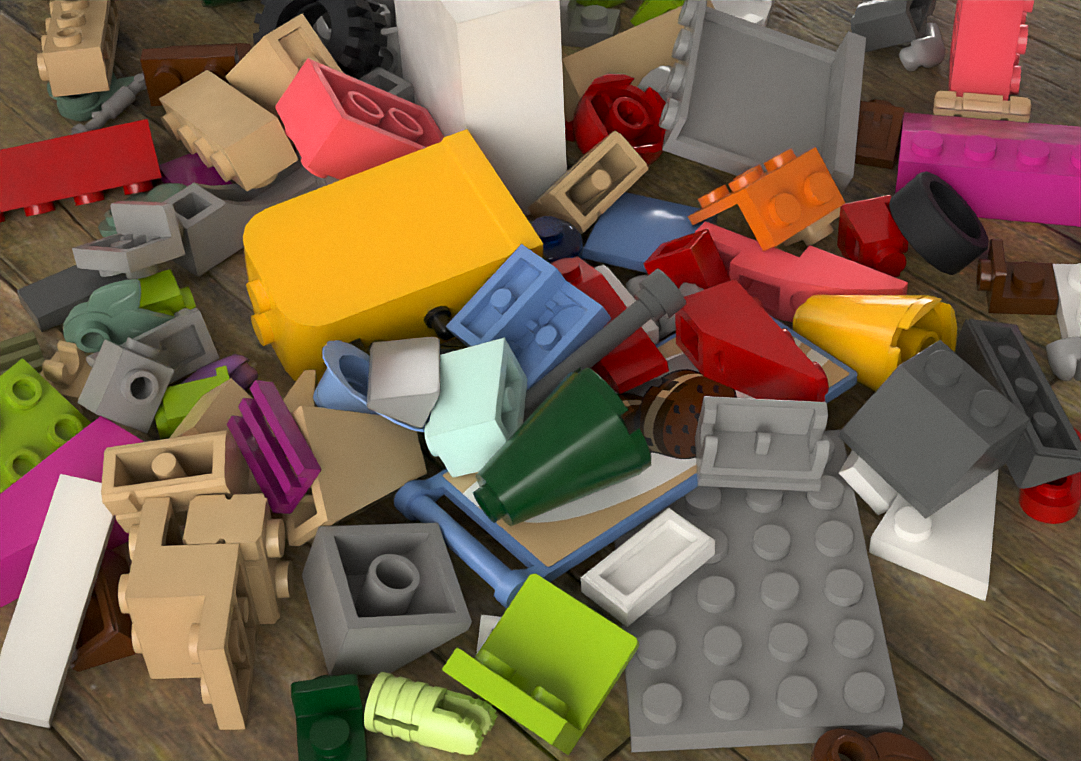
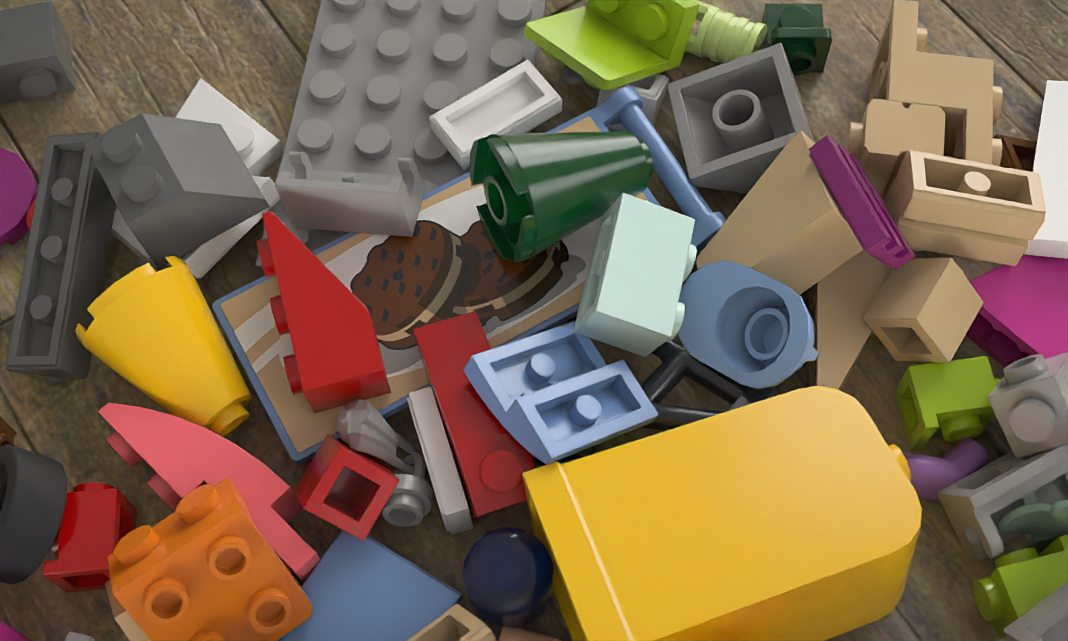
camera: 170 degrees left, 20 degrees up
(404, 379) = (714, 318): light grey slope -> none
(655, 300) = (407, 349): dark grey piece -> none

